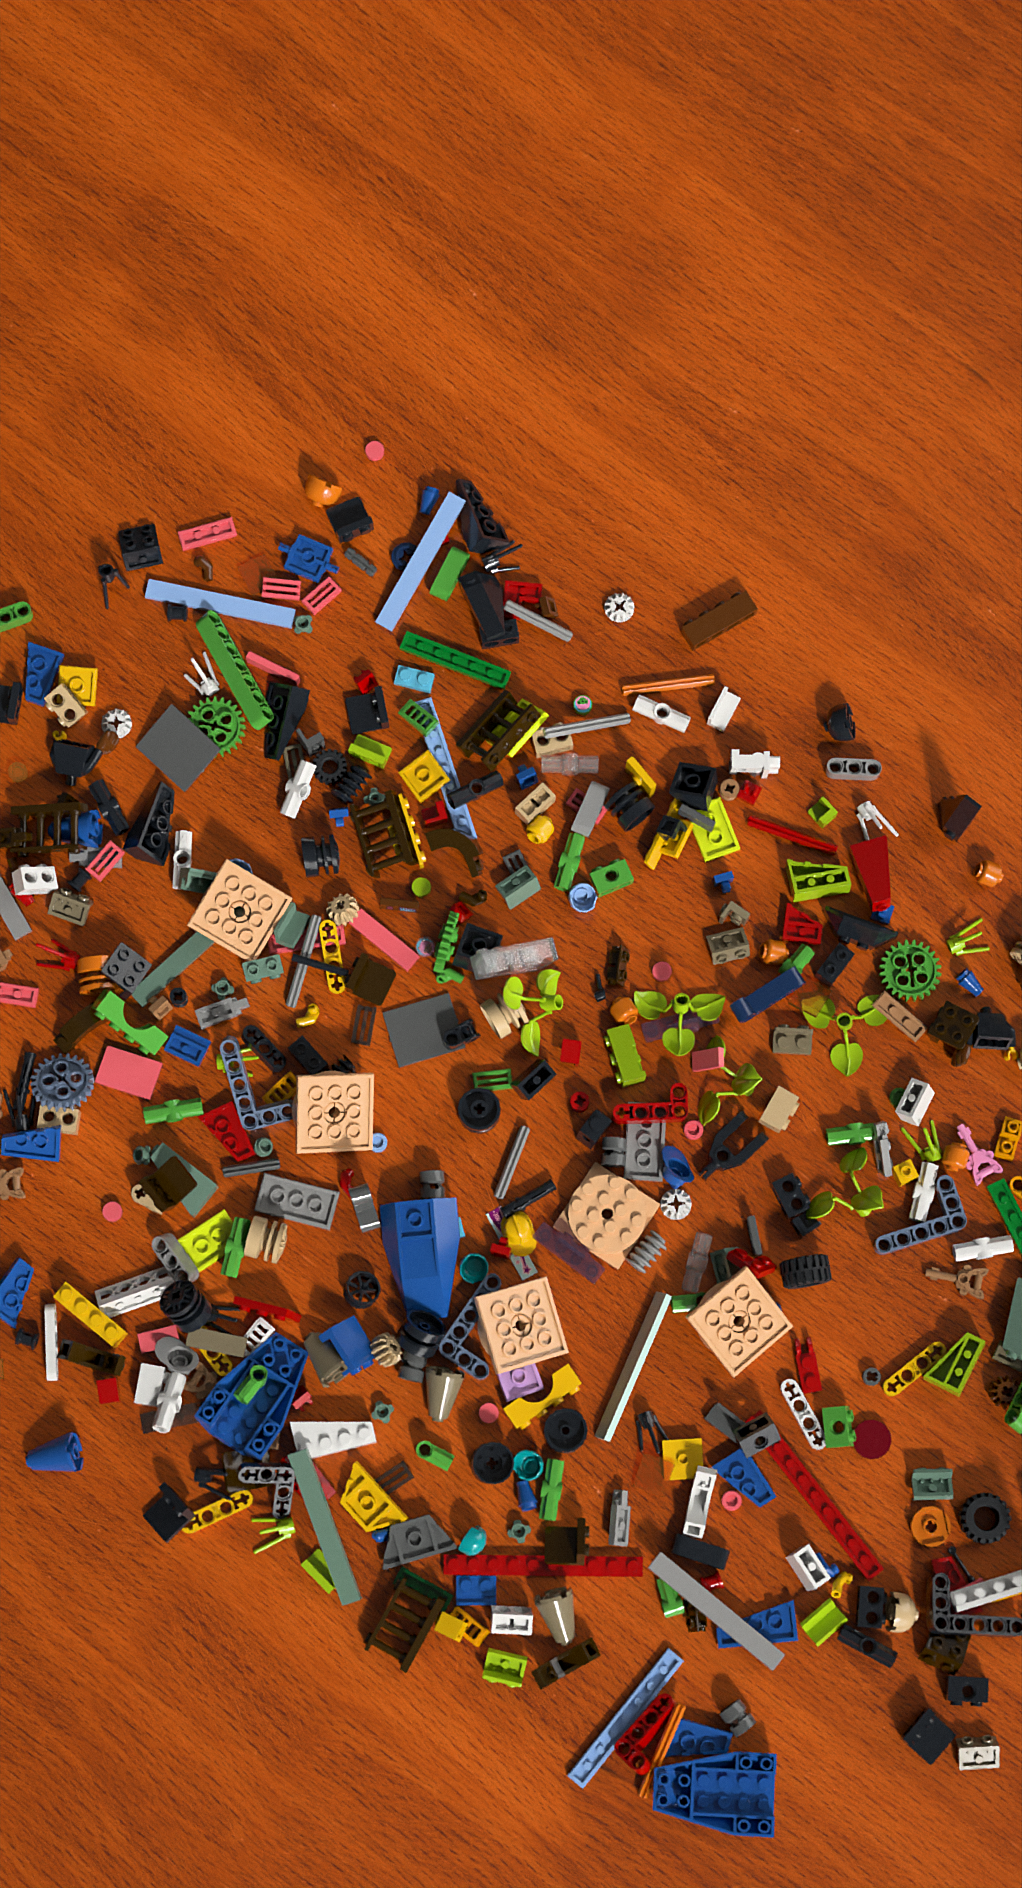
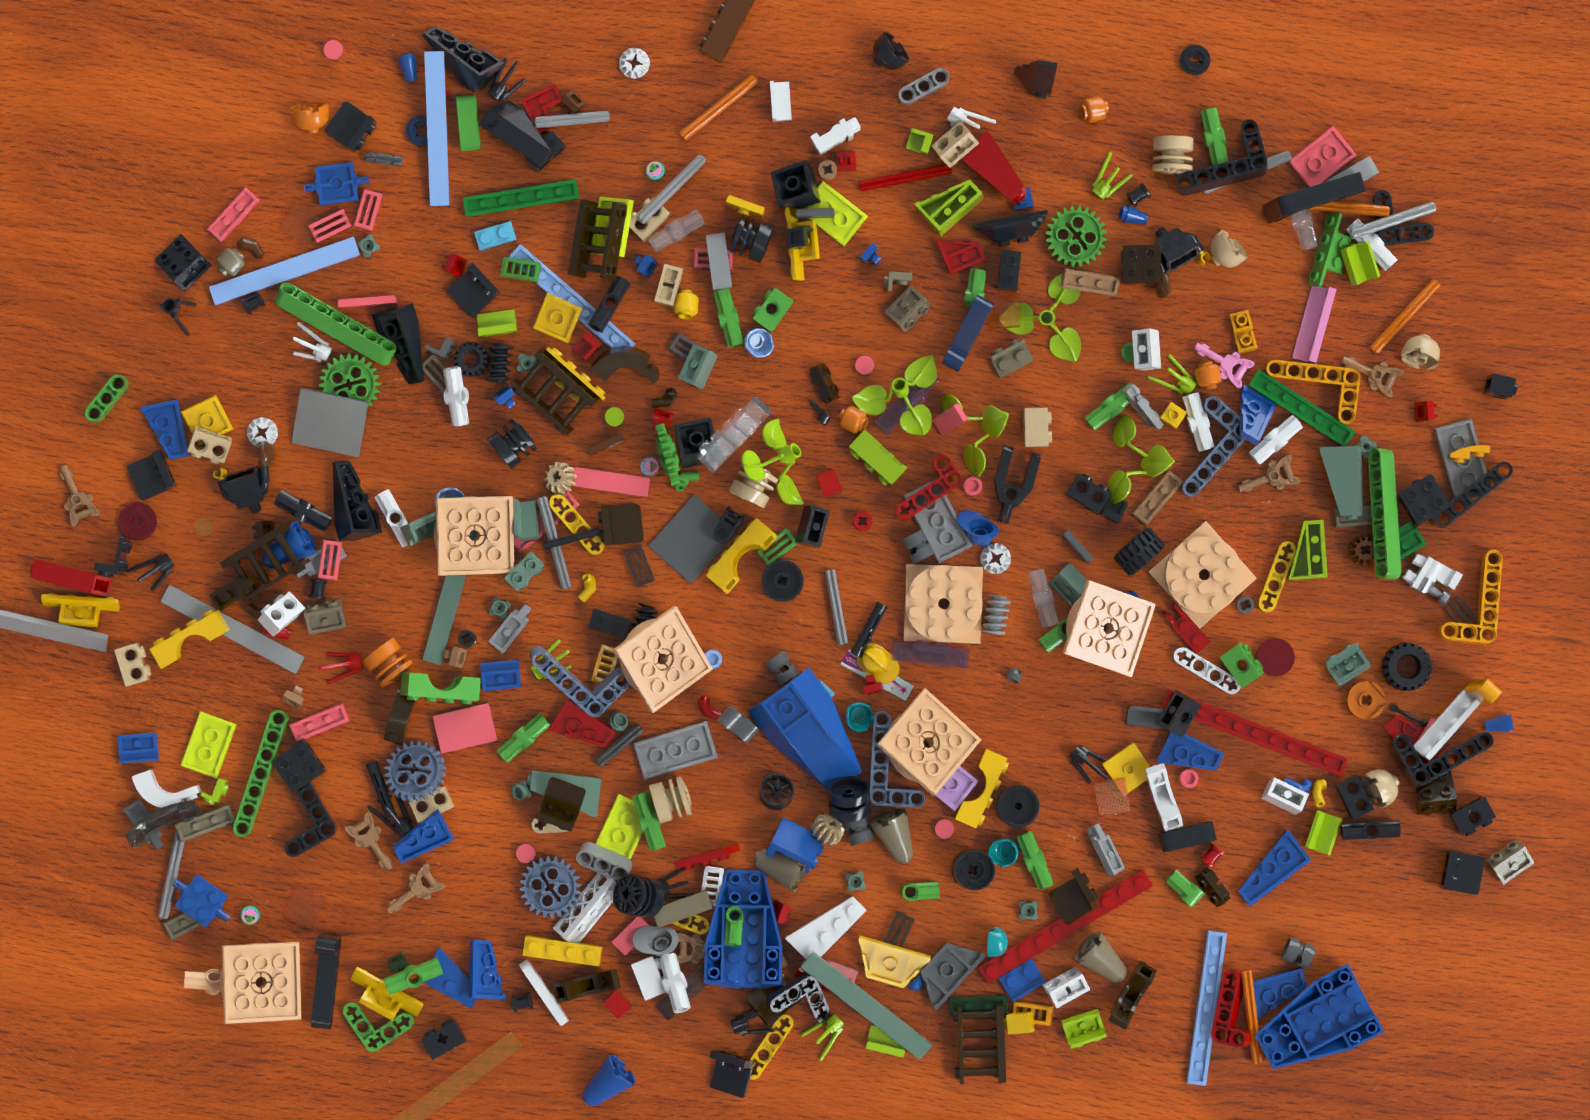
camera: 30 degrees left, 10 degrees up
(126, 969) = (409, 643): bracket -> none
(132, 1251) = (536, 897): none -> sand blue gear
(180, 568) = (230, 261): none -> dark tan head
(249, 1041) = (581, 637): black beam -> none
(478, 1059) = (725, 570): none -> yellow arch
(526, 1498) = (1017, 879): blue cone -> none
(593, 1129) = (889, 536): black torso -> none
(631, 1315) = (1014, 675): none -> dark grey hinge
(633, 1366) = (1041, 717): tile -> none
(650, 708) = (715, 139): white piece -> none
(716, 1611) = (1230, 878): light grey tile -> none
(758, 1266) = (1095, 572): red plate -> none
(773, 952) = (950, 291): orange head -> none
(842, 1349) = (1180, 574): none -> light nougat piece
(849, 1237) = (1157, 498): none -> medium nougat tile
(851, 831) = (955, 144): none -> tan brick
(977, 1213) = (1254, 414): none -> blue wing
(985, 967) = (1138, 195): none -> black bush

